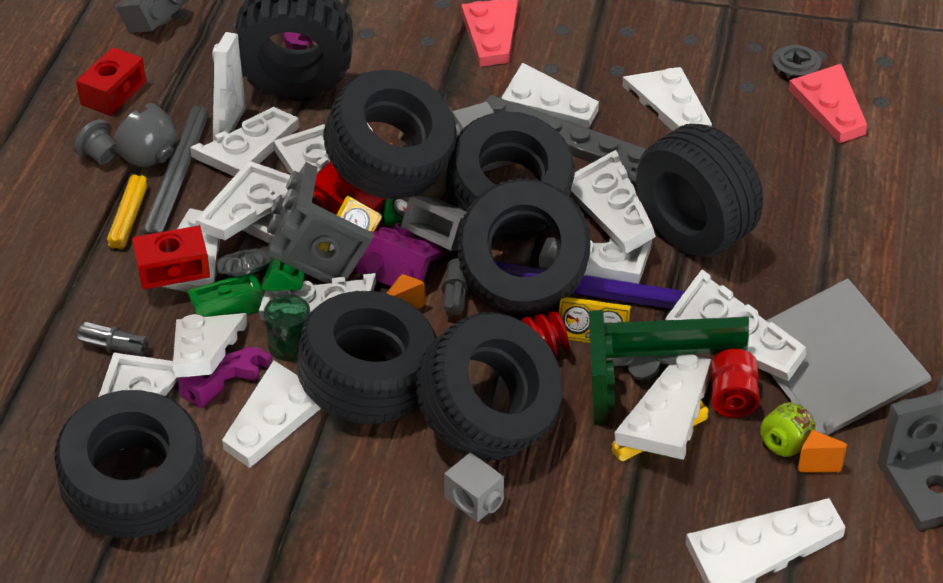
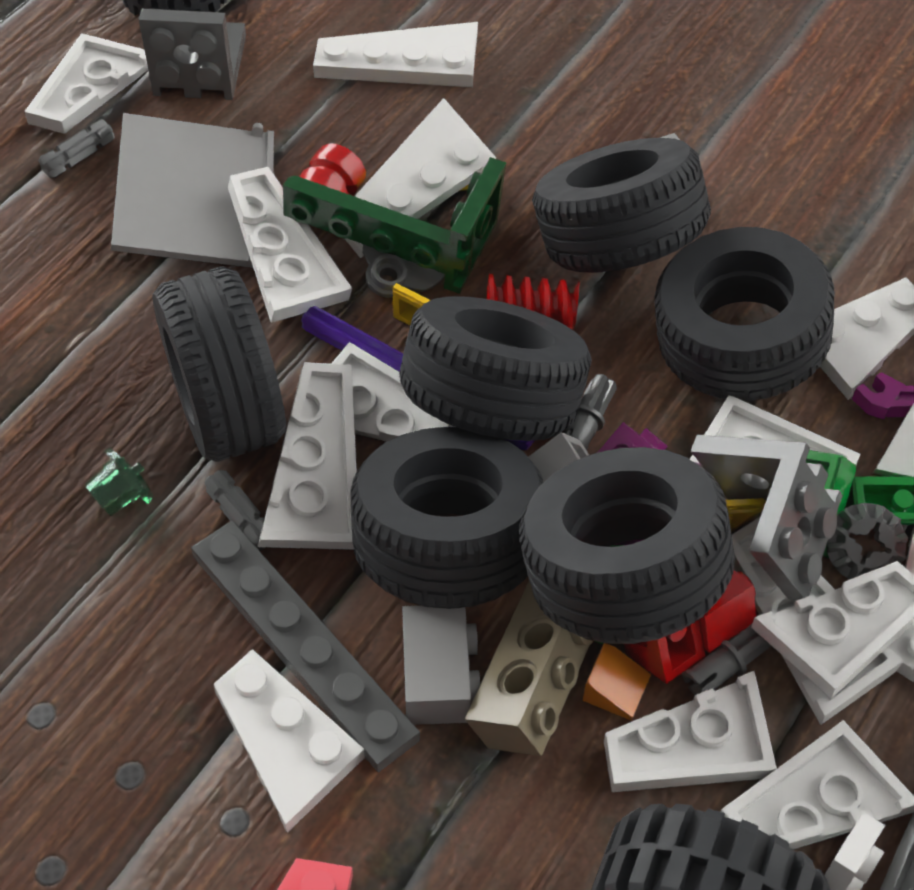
camera: 160 degrees left, 10 degrees up
(284, 324) = (830, 402): clear green wheel -> none
(409, 290) = (662, 414): orange slope -> none
(669, 95) = (93, 663): white wing -> none
(788, 426) = (306, 127): lime head -> none
(822, 454) = (292, 98): orange slope -> none

